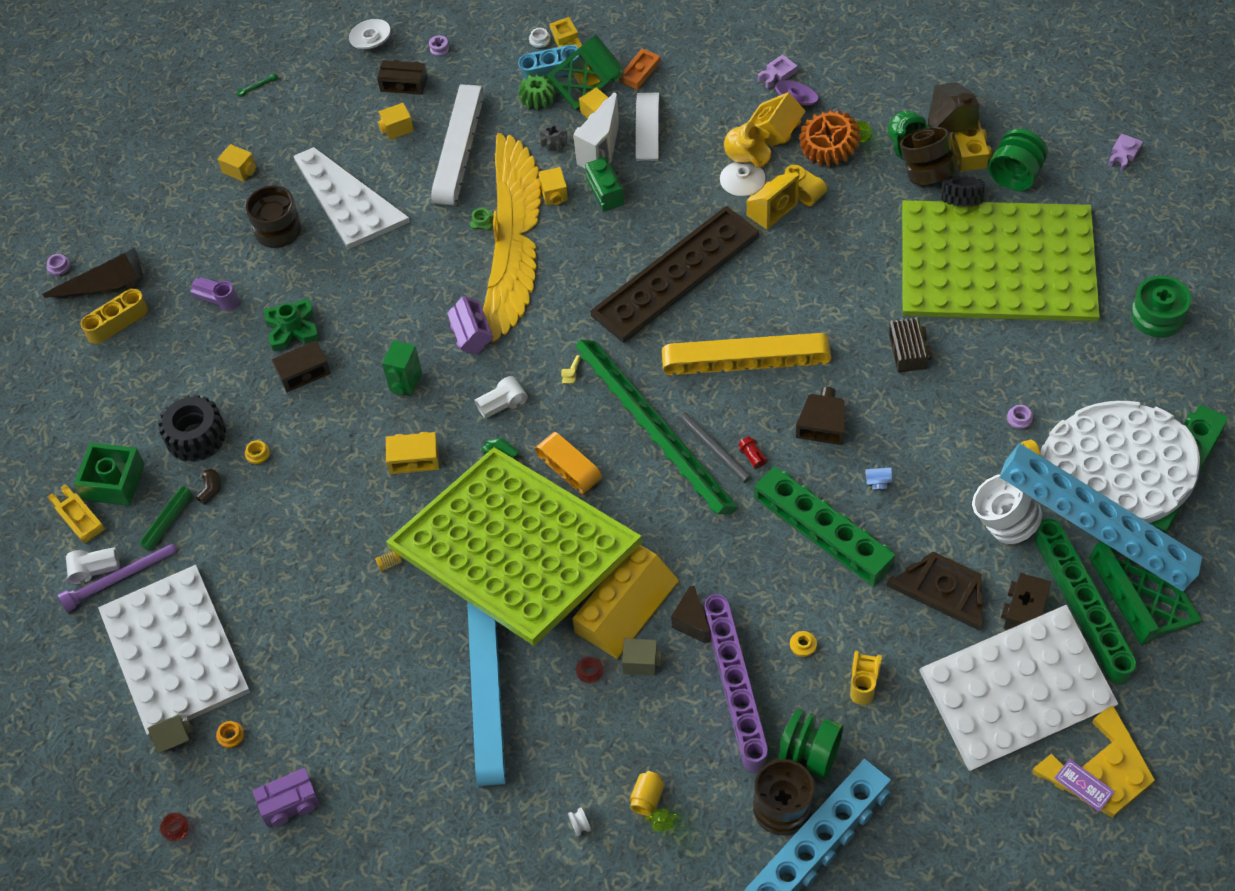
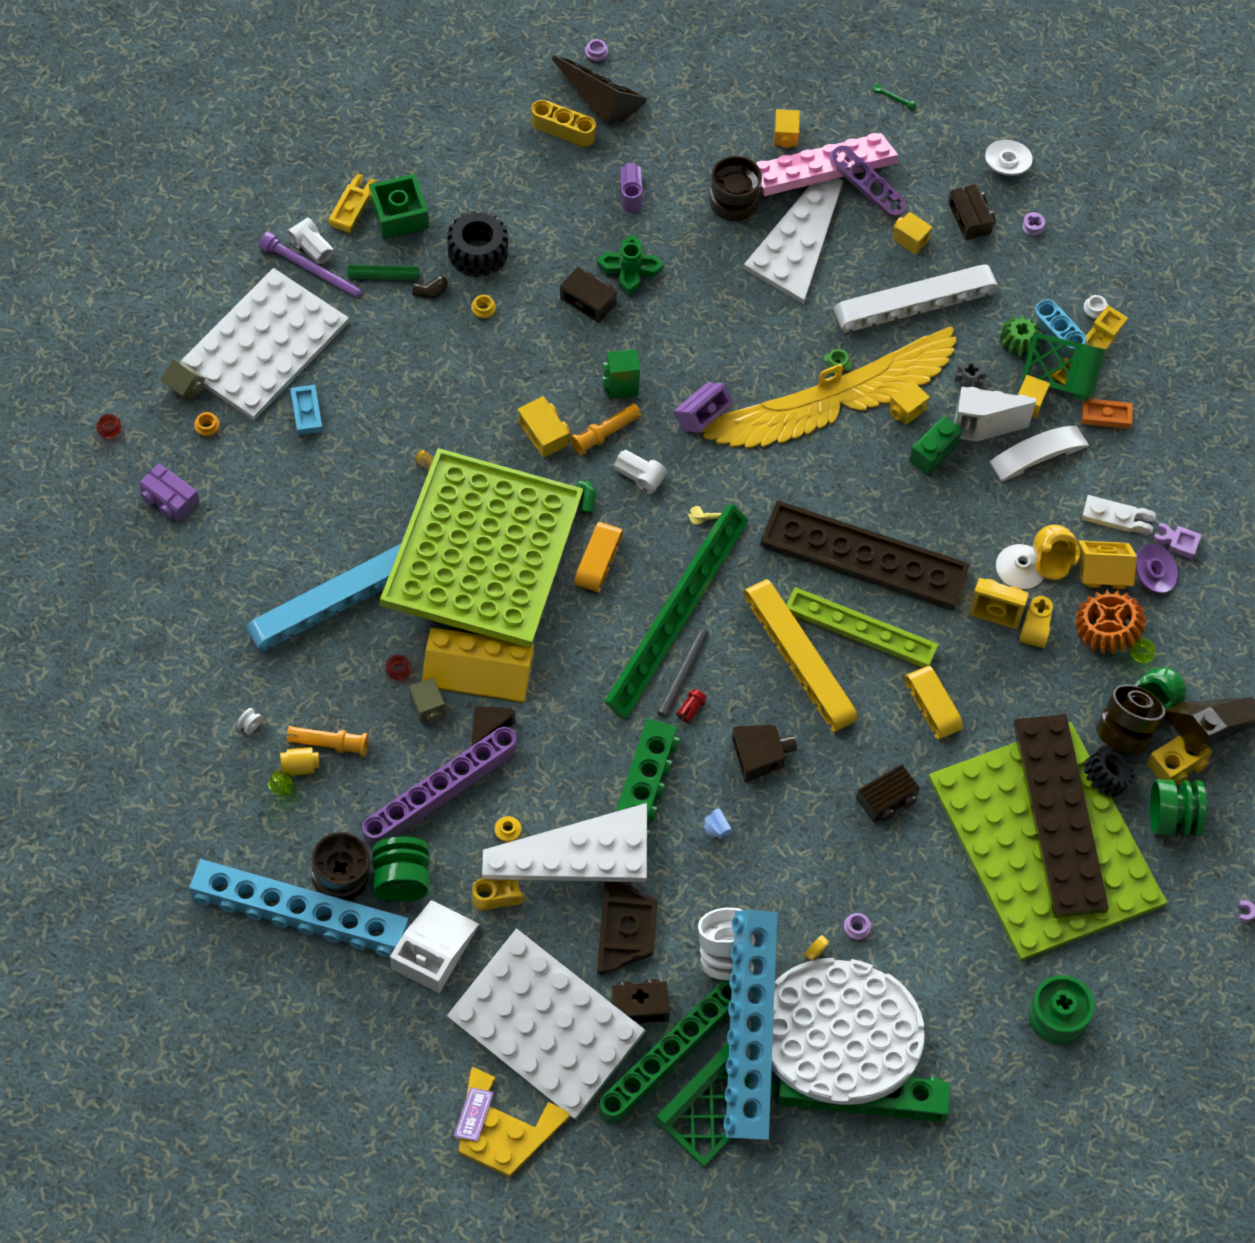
camera: 55 degrees right, 5 degrees up
(270, 639) = (306, 409): none -> medium azure plate
(293, 144) = (815, 167): none -> bright pink plate
(329, 123) = (865, 184): none -> medium lavender beam
(443, 414) = (596, 434): none -> light orange pin
(643, 748) = (339, 741): none -> light orange pin
(732, 100) = (1117, 515): none -> white hinge
(744, 301) = (861, 628): none -> lime plate
(839, 280) = (934, 701): none -> yellow beam
(866, 581) = (591, 850): none -> white wing
(898, 750) = (432, 946): none -> white slope
(987, 237) = (1060, 816): none -> dark brown plate

